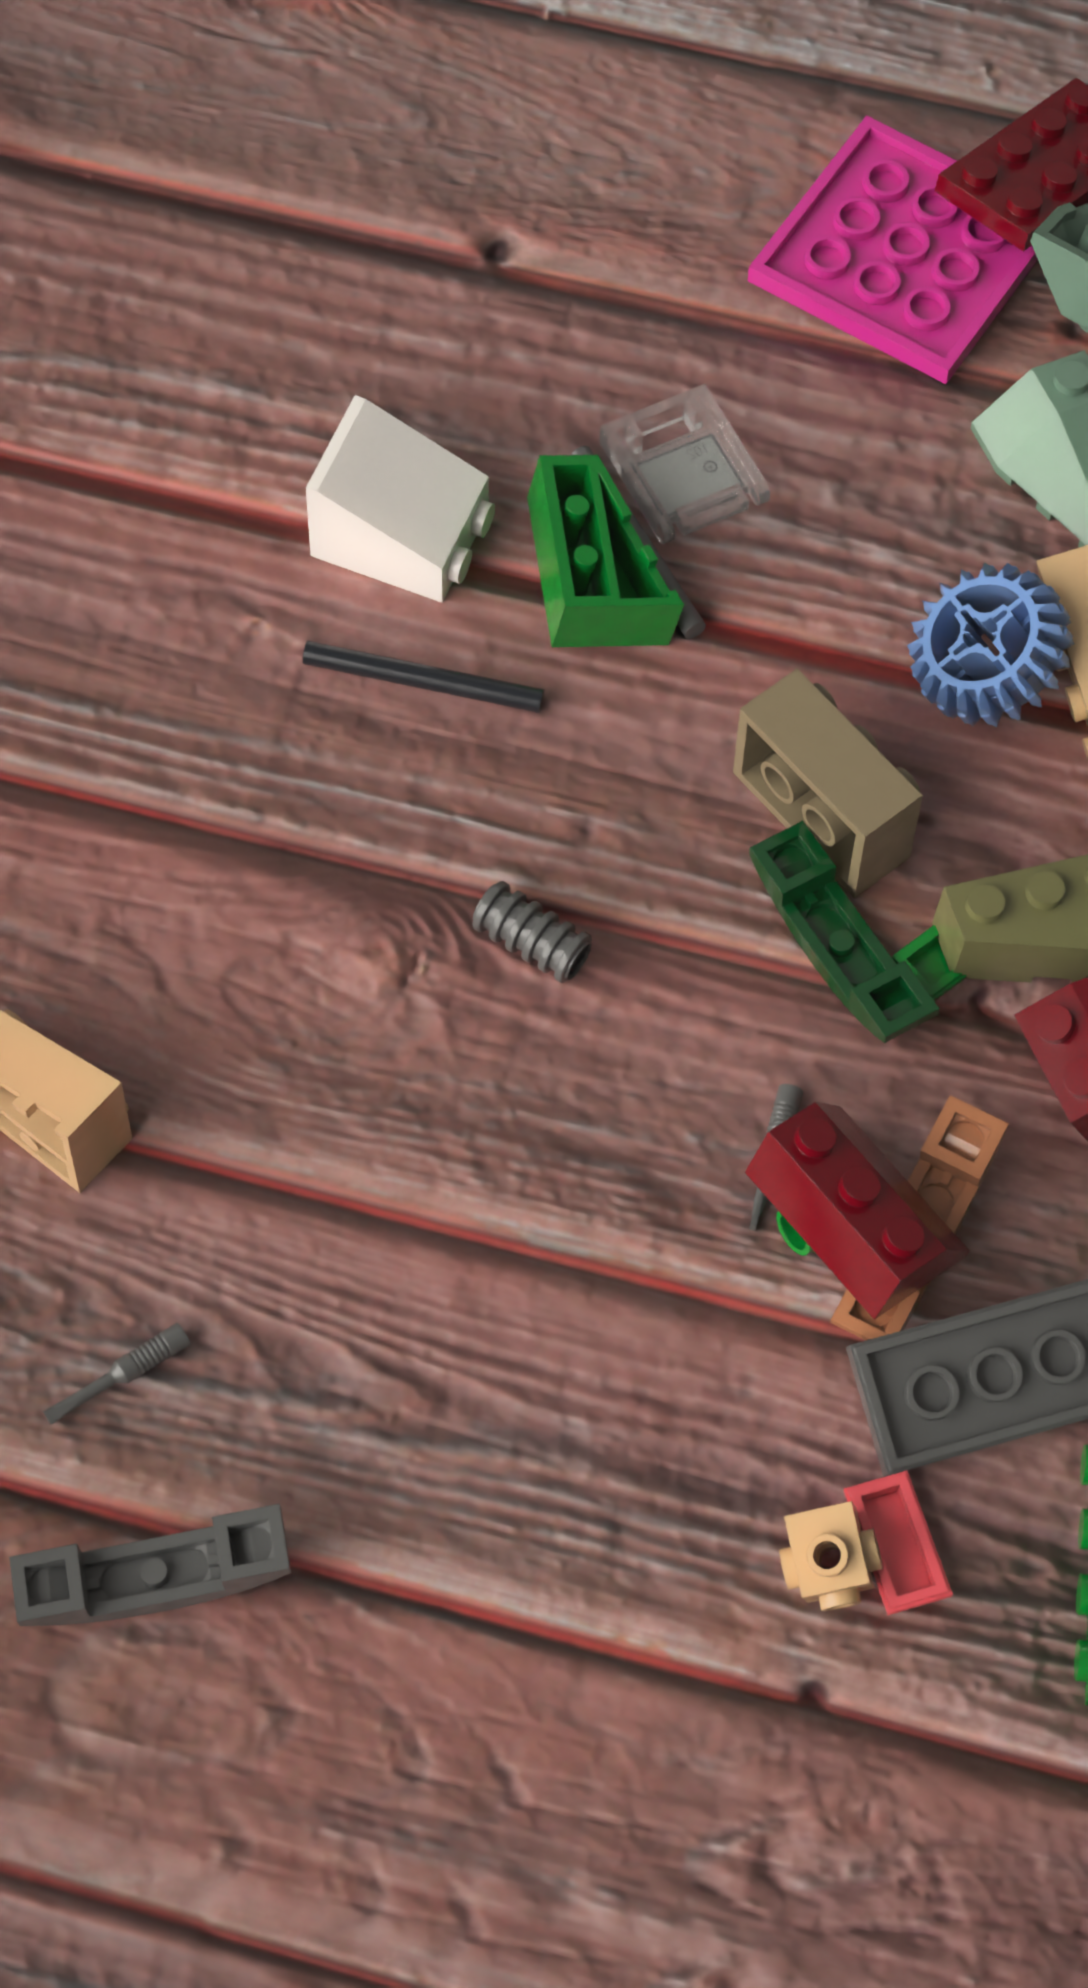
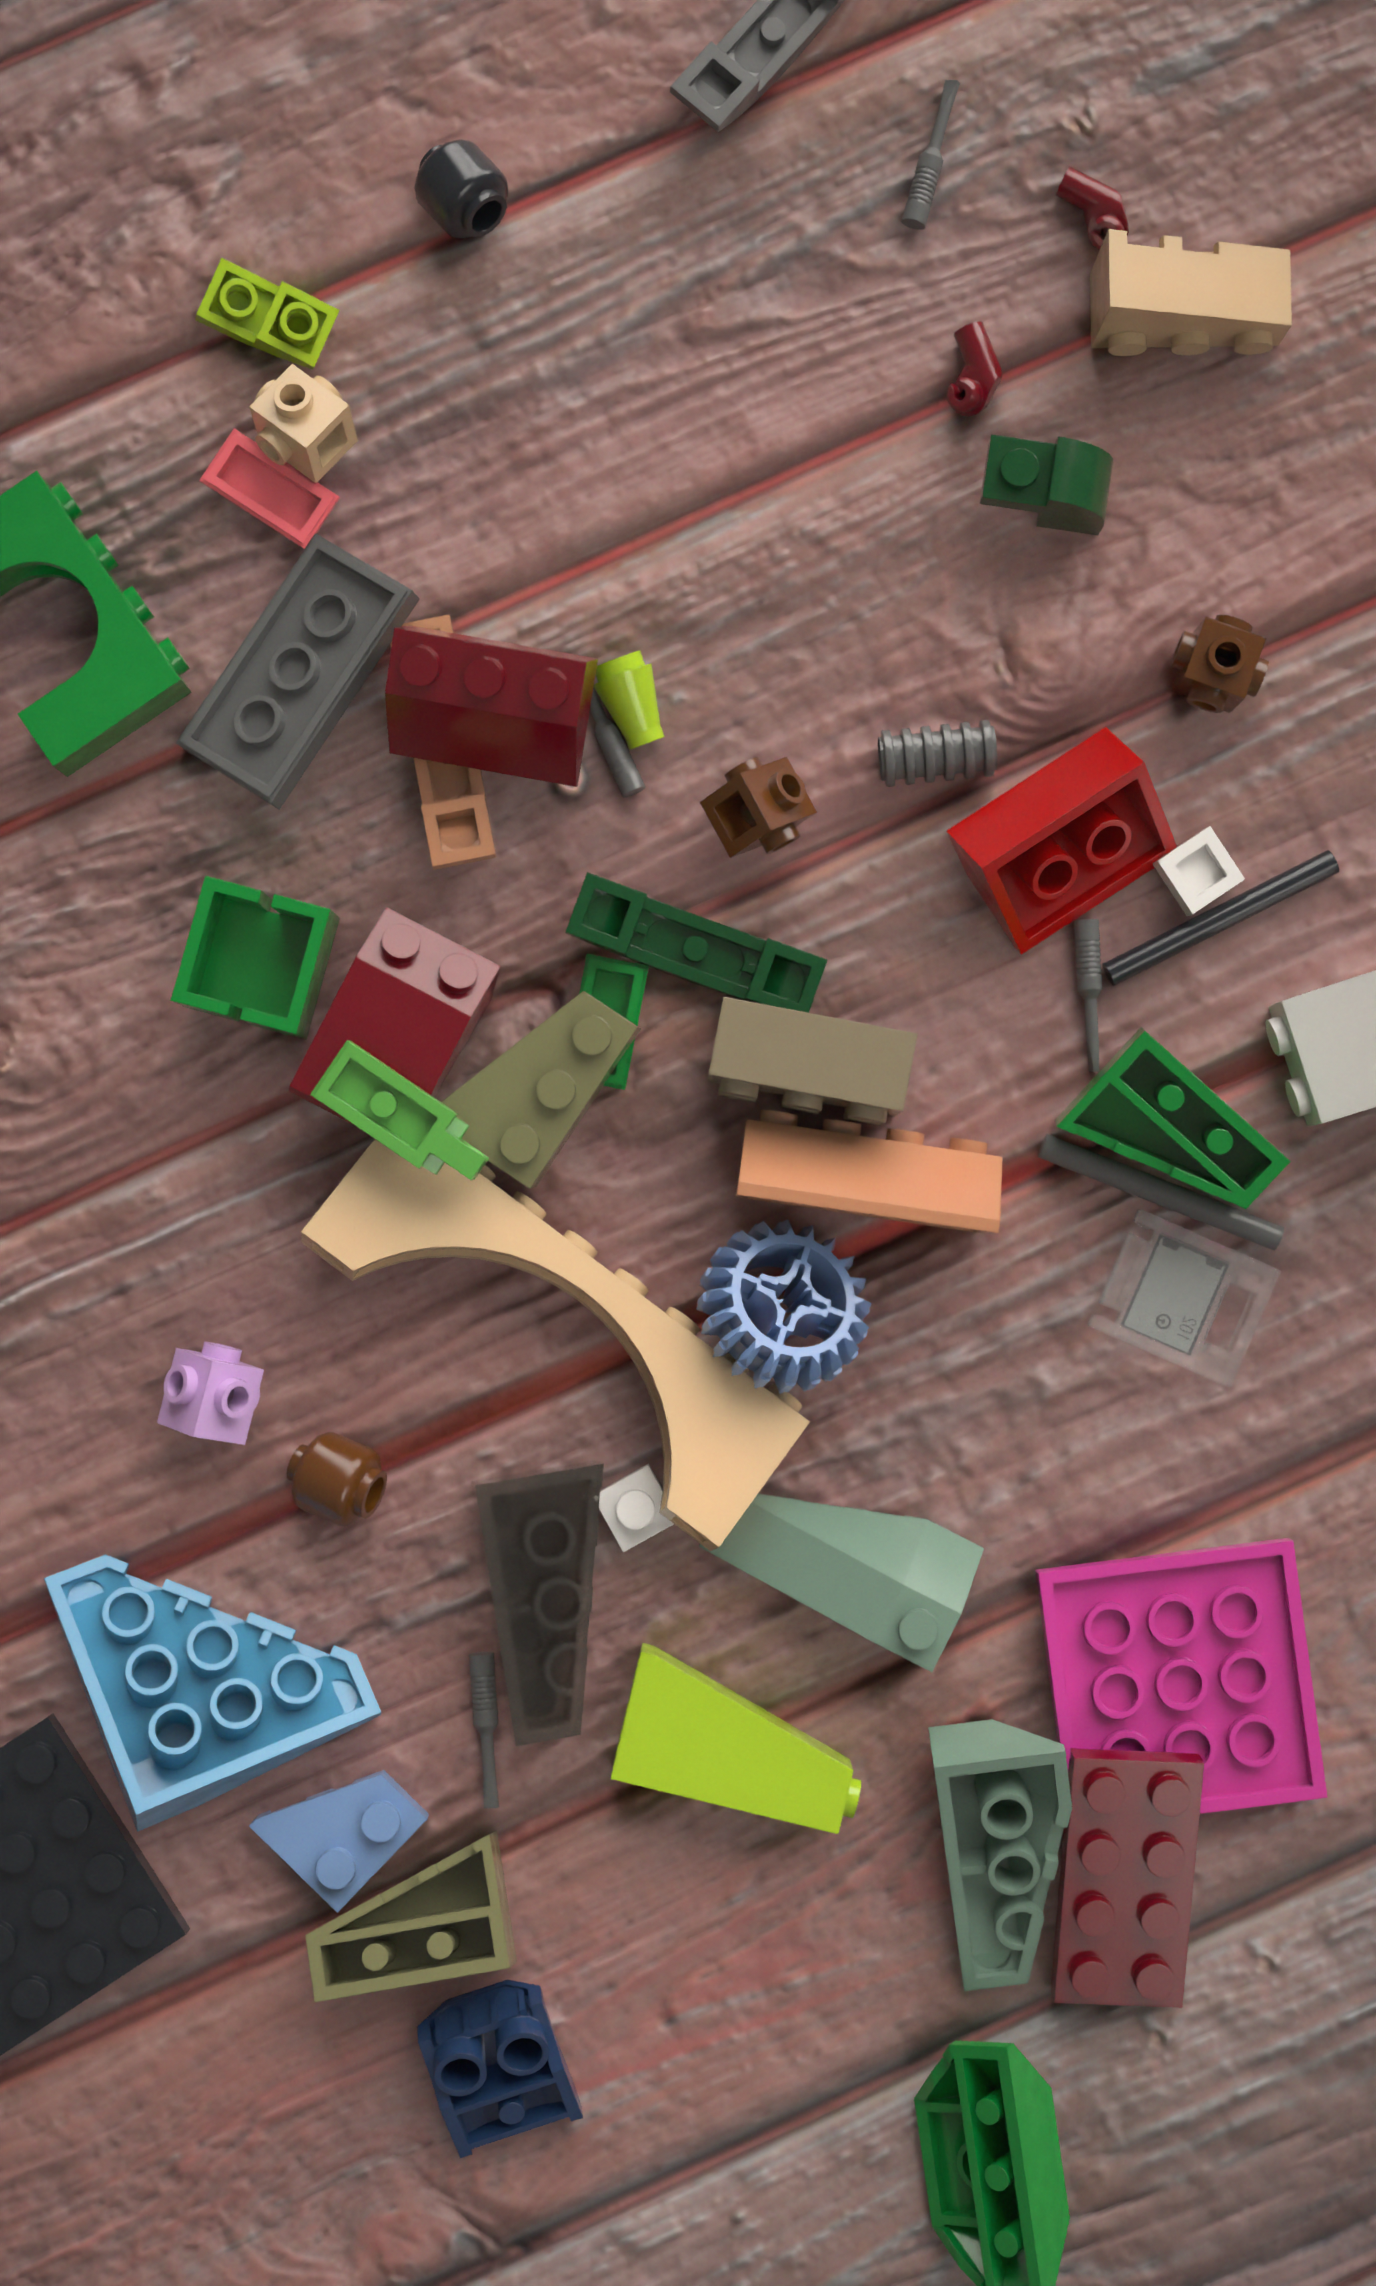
camera: 140 degrees right, 25 degrees up
(29, 1221) = (1100, 204): none -> dark red arm
(240, 1178) = (980, 374): none -> dark red arm
(265, 825) = (1204, 679): none -> reddish brown brick
(269, 1038) = (1058, 481): none -> dark green brick
(412, 711) = (1198, 871): none -> white plate
(491, 806) = (1064, 839): none -> red slope
(531, 1646) = (461, 189): none -> black head
(559, 708) = (1089, 982): none -> dark grey piece
(708, 986) = (758, 807): none -> reddish brown brick
(732, 1150) = (630, 698): none -> lime cone
(781, 1688) = (266, 315): none -> lime slope
(875, 678) = (869, 1175): none -> nougat slope

